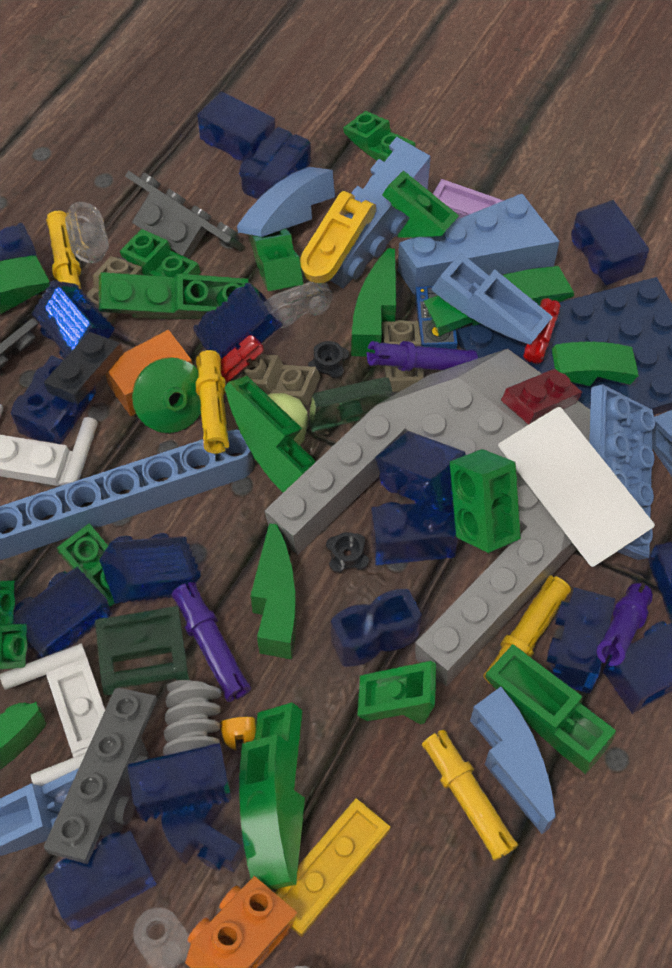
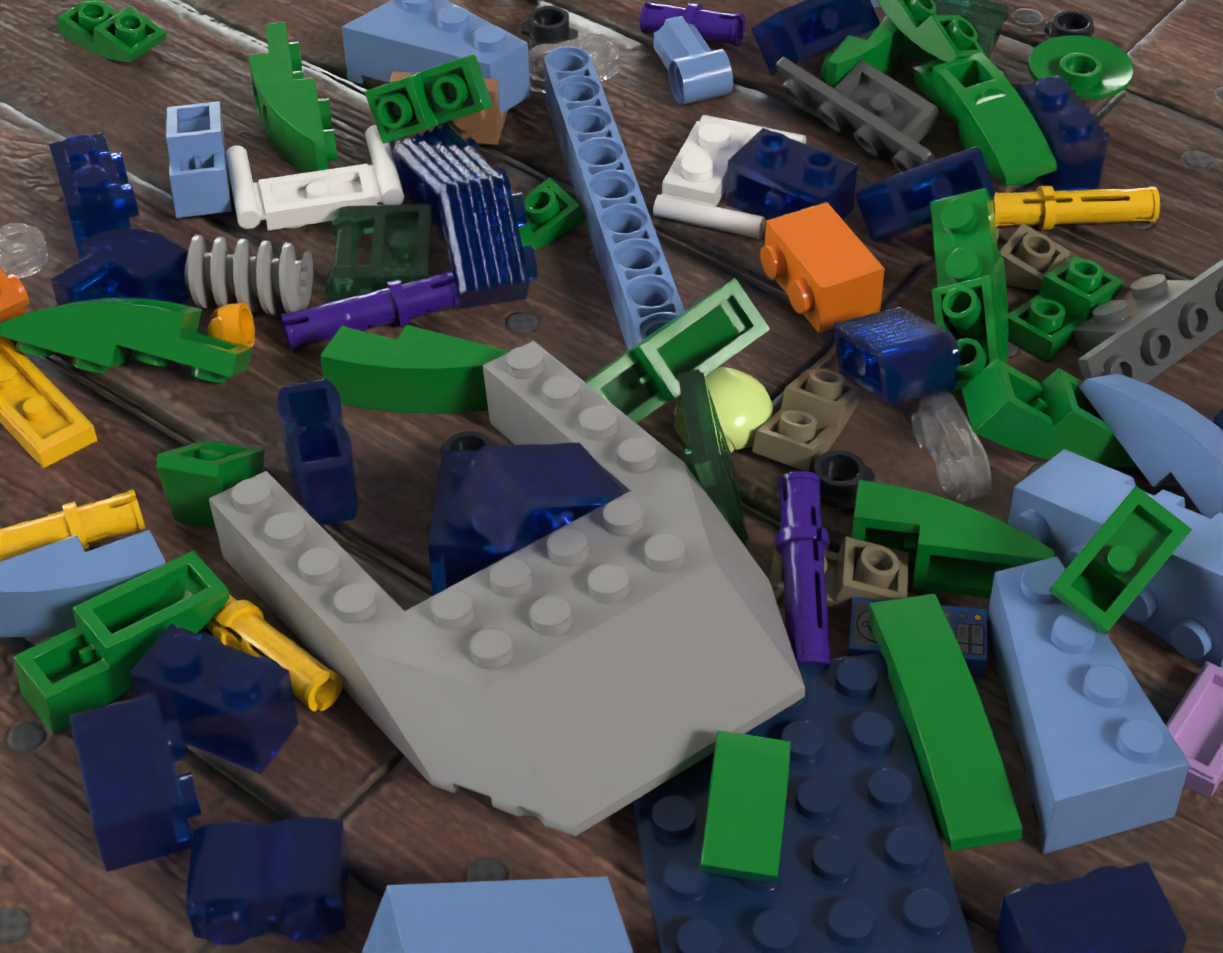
camera: 100 degrees right, 15 degrees down
(83, 368) = (815, 176): black plate -> none
(86, 232) = (1114, 225): clear plate -> none
(101, 791) = (202, 195): dark grey bracket -> none
(154, 389) = (778, 273): green dish -> none
(179, 782) = (151, 220): clear blue brick -> none
(211, 390) = (806, 311): yellow pin -> none
(238, 359) = (826, 351): red axle -> none
(335, 237) = (1063, 459): yellow plate -> none
(485, 500) = (441, 525): green brick -> none
(491, 300) = (899, 653): medium blue slope -> none
(536, 350) = (844, 750): red axle -> none
(541, 395) = (661, 679): dark red plate -> none
(576, 486) = (449, 669): white sticker -> none
(623, 439) = (495, 786): medium blue tile -> none
(629, 616) = (207, 732): dark purple pin -> none

